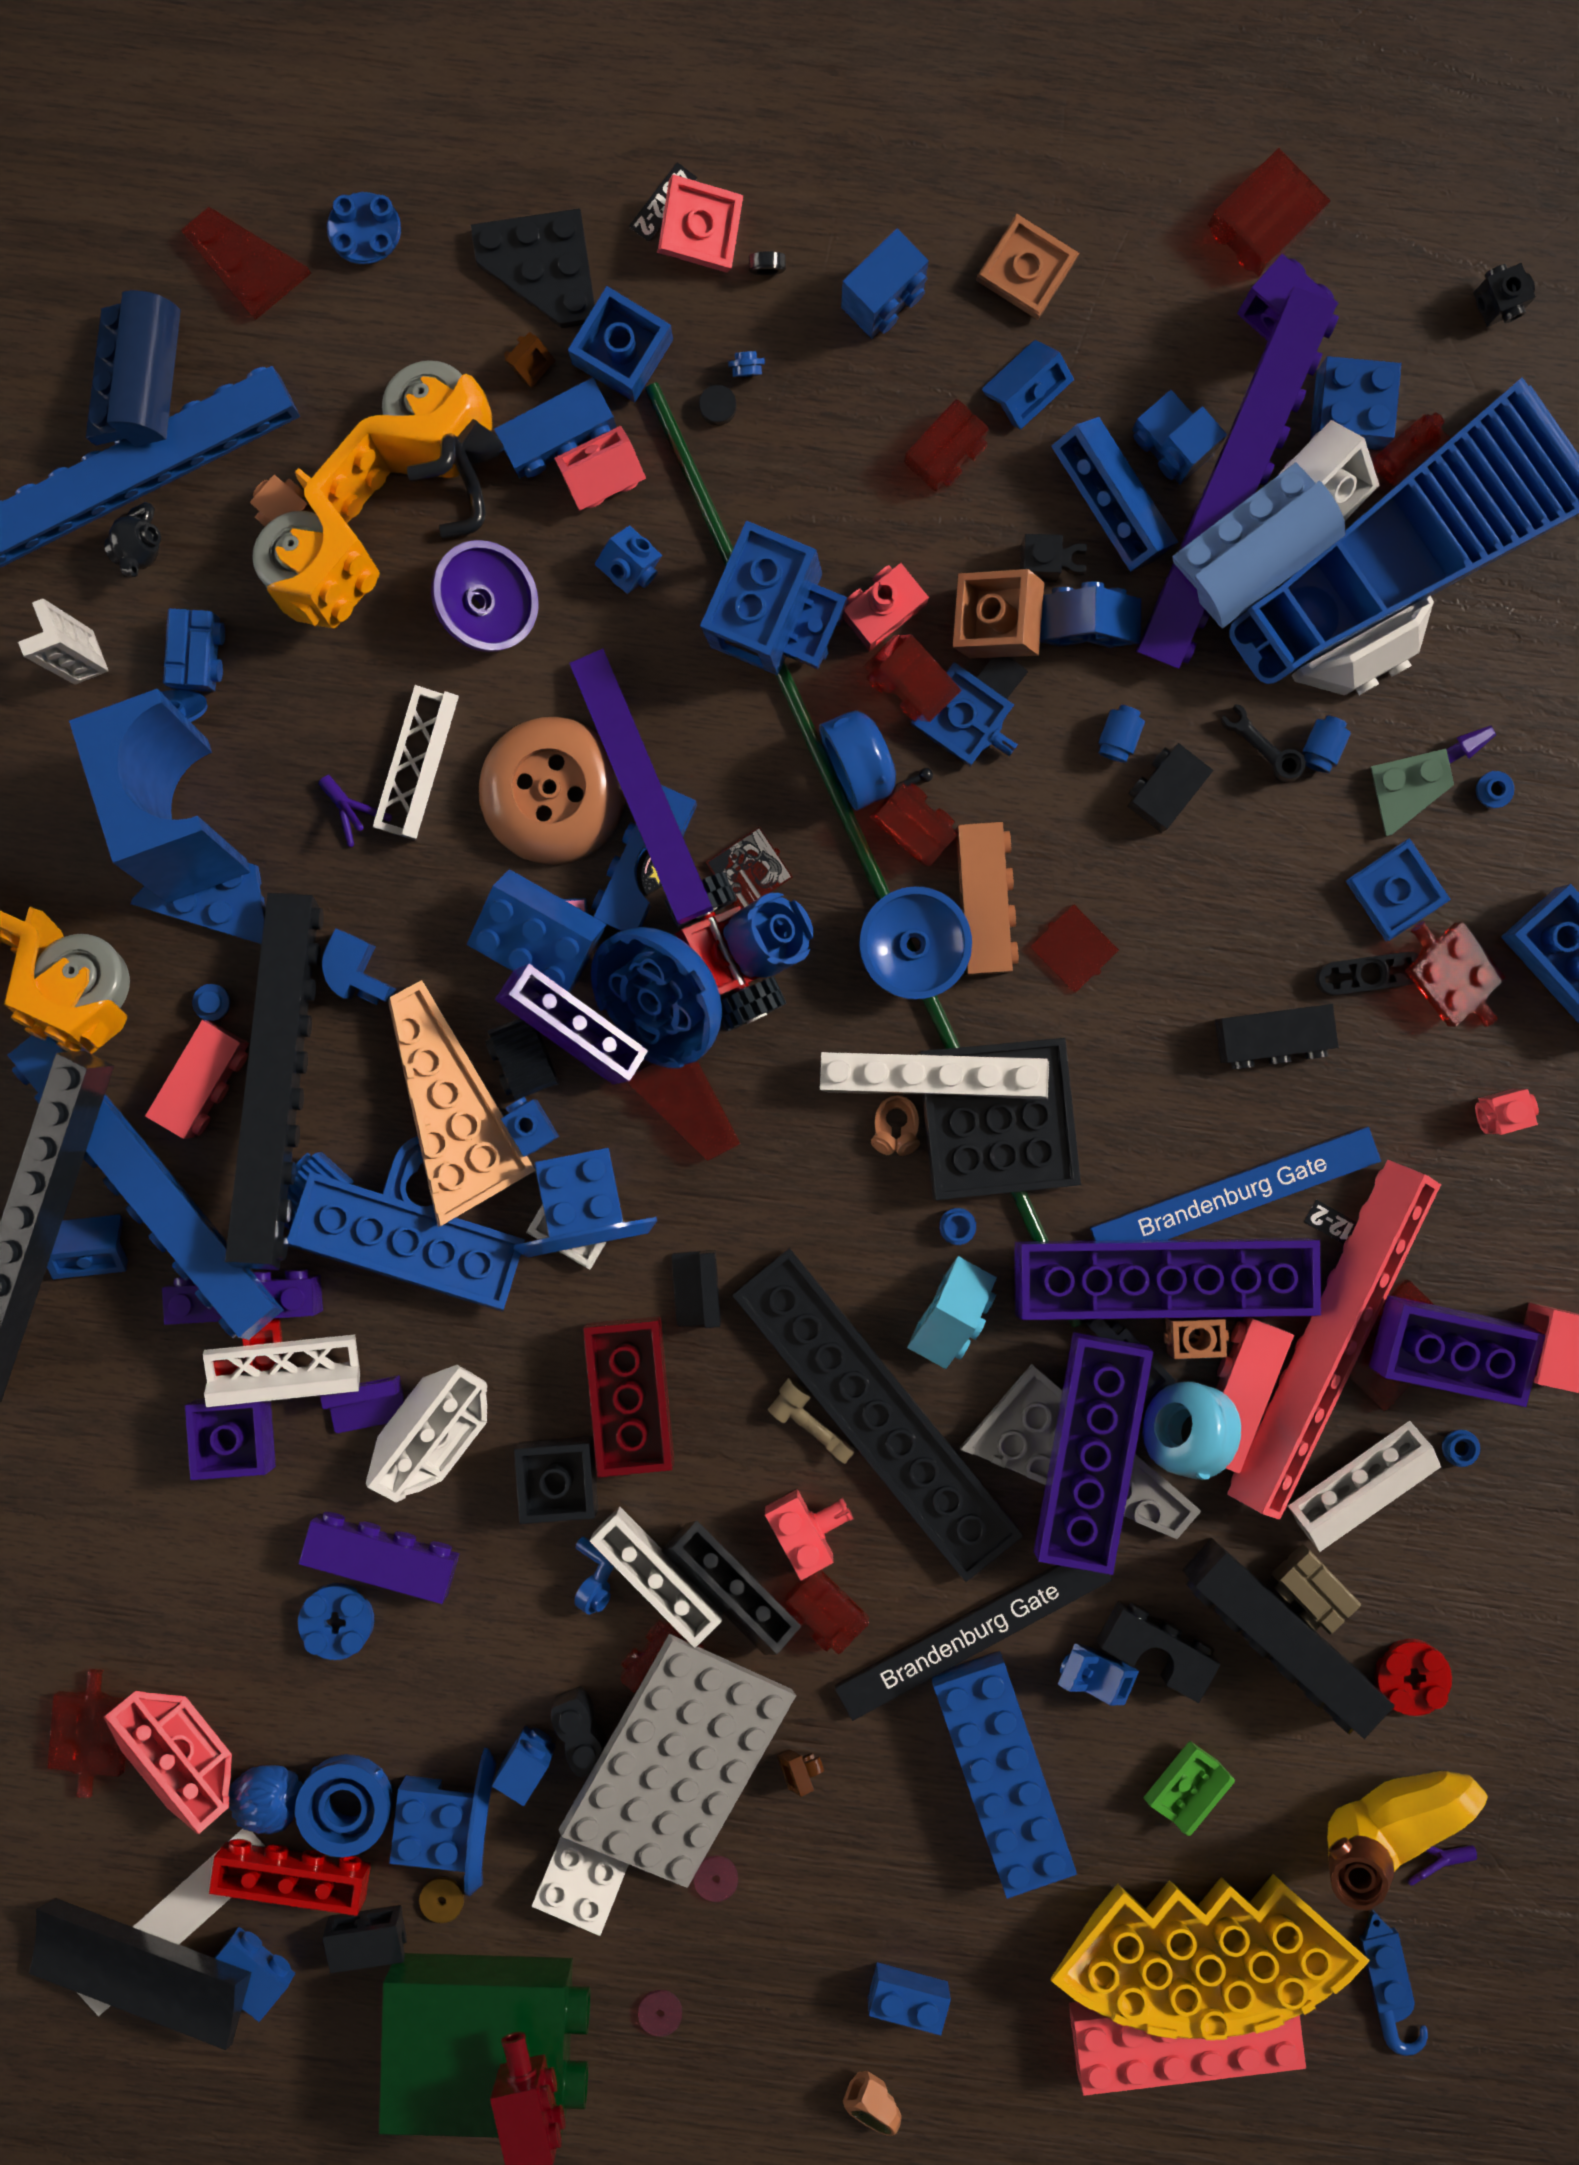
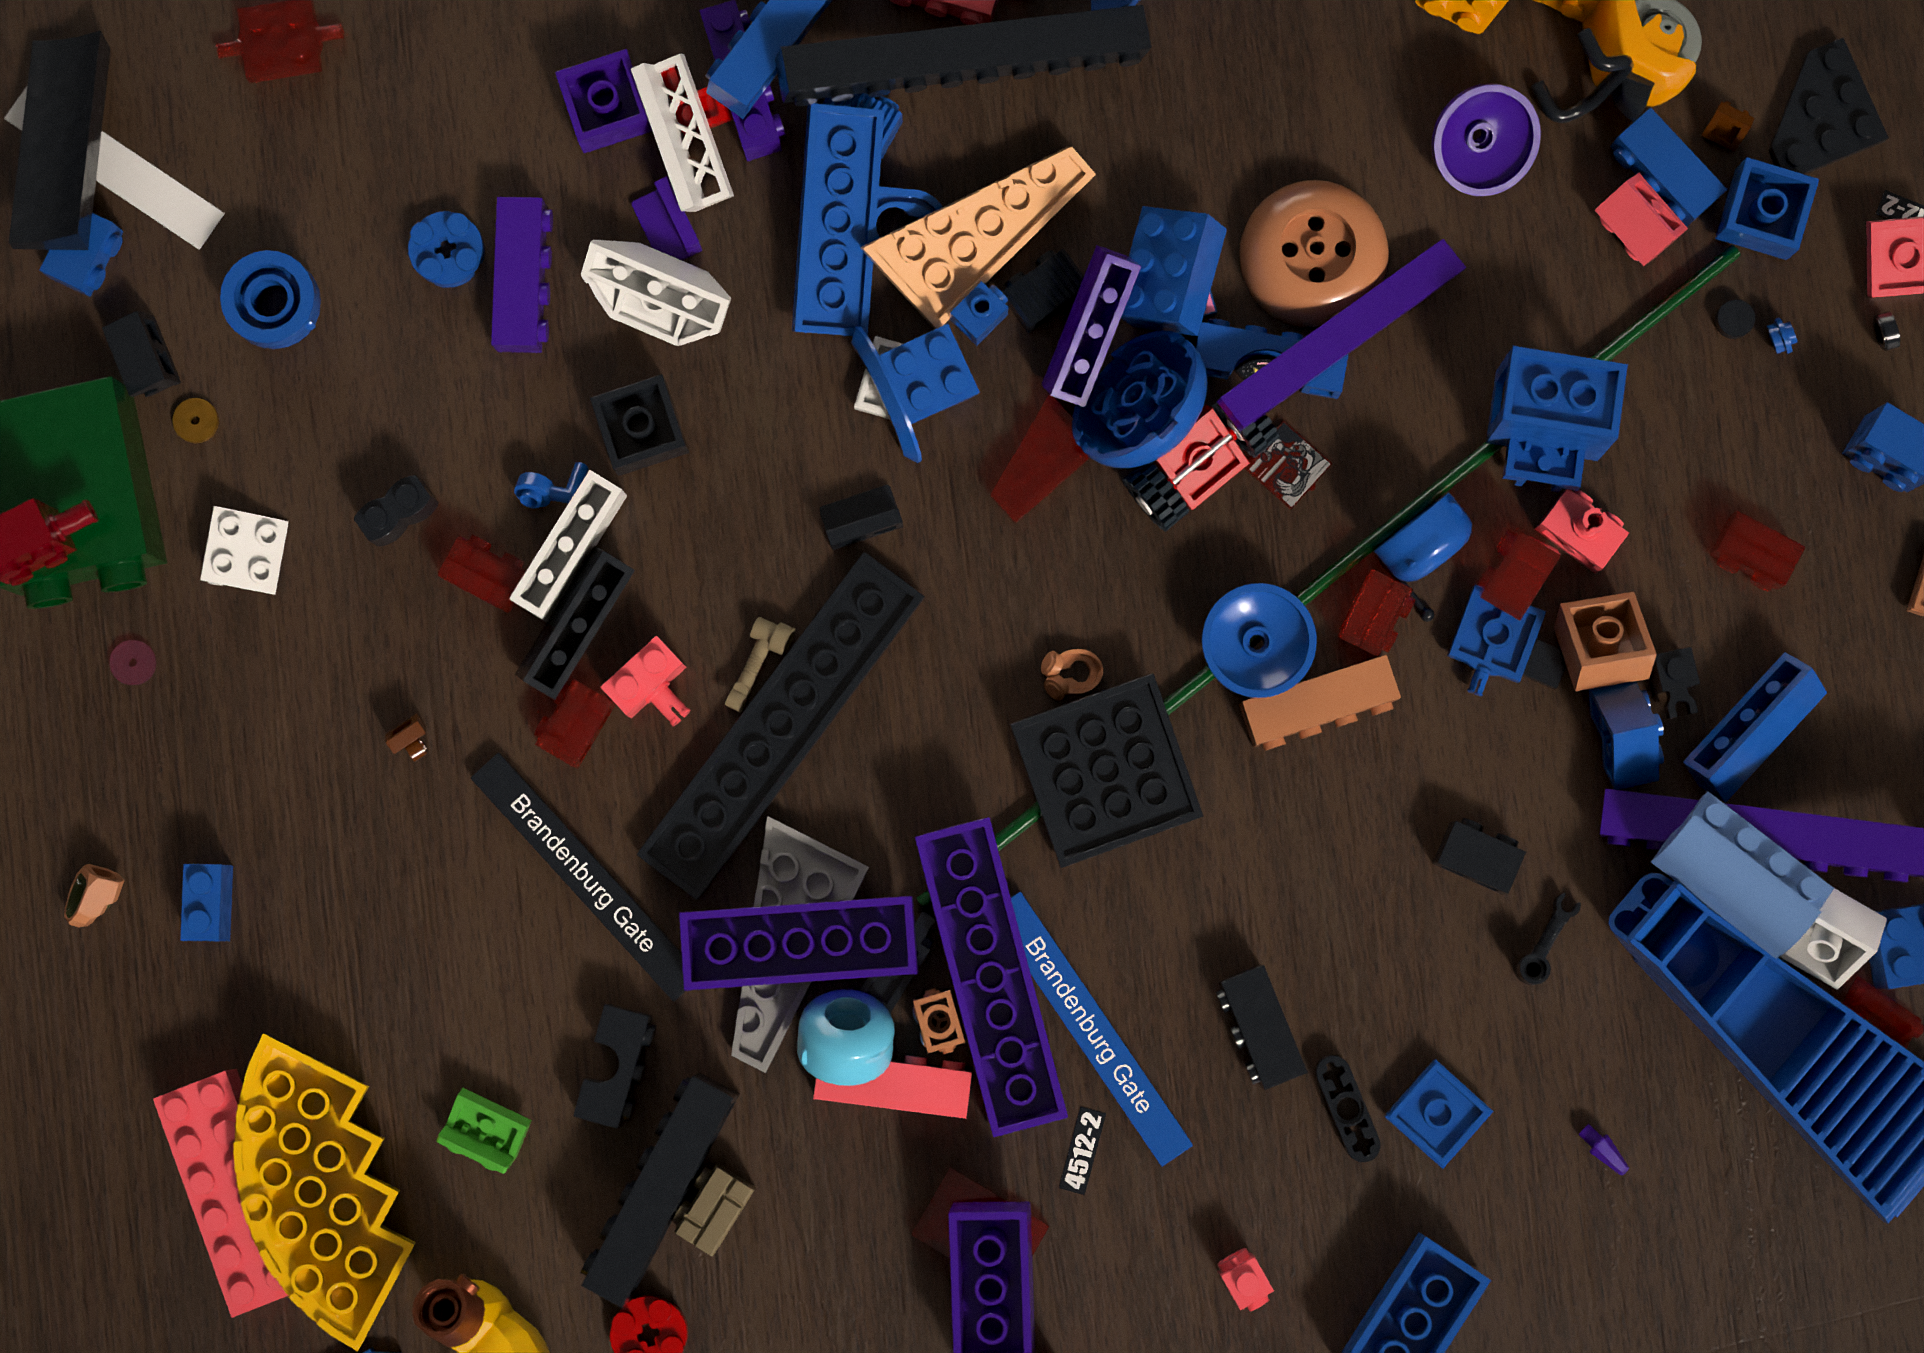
camera: 80 degrees right, 5 degrees down
(174, 1754) = (281, 124): coral wedge -> none
(264, 1798) = (257, 222): blue hair -> none
(290, 1877) = (187, 266): red brick -> none
(344, 806) = (1247, 57): dark purple plant -> none
(345, 967) = (1092, 97): blue brick -> none
(429, 767) = (1306, 129): white fence -> none
(443, 1826) = (273, 402): blue piece -> none
(524, 1765) = (352, 463): blue brick -> none
(629, 560) = (1559, 269): blue brick -> none
(629, 1396) = (739, 475): dark red brick -> none
(677, 1762) = (390, 613): light grey plate -> none
(718, 1890) = (267, 684): clear pink wheel -> none
(769, 935) = (1228, 496): blue brick -> none
(934, 1075) = (1134, 692): white arch -> none
(954, 1314) = (901, 773): medium azure brick -> none
(957, 1226) = (988, 758): blue plate -> none
(1003, 1775) = (453, 940): blue brick -> none
(1029, 382) = (1841, 617): blue panel -> none
(1074, 948) = (1294, 805): clear red piece -> none
(1097, 1675) = (575, 1008): blue brick -> none
(1121, 733) = (1519, 795): blue brick -> none
(1178, 437) = (1829, 775): blue brick -> none
(1326, 744) = (1564, 1003): blue brick -> none
(1334, 1339) = (971, 1161): coral brick -> none
(1365, 1486) = (832, 1230): white brick -> none
(1370, 654) = (1665, 1024): white wedge -> none
(1410, 786) = (1545, 1099): sand green wing -> none
(1455, 974) = (1369, 1192): clear red plate -> none
(1471, 1451) = (890, 1335): blue plate -> none
(1484, 792) = (1553, 1187): blue plate -> none

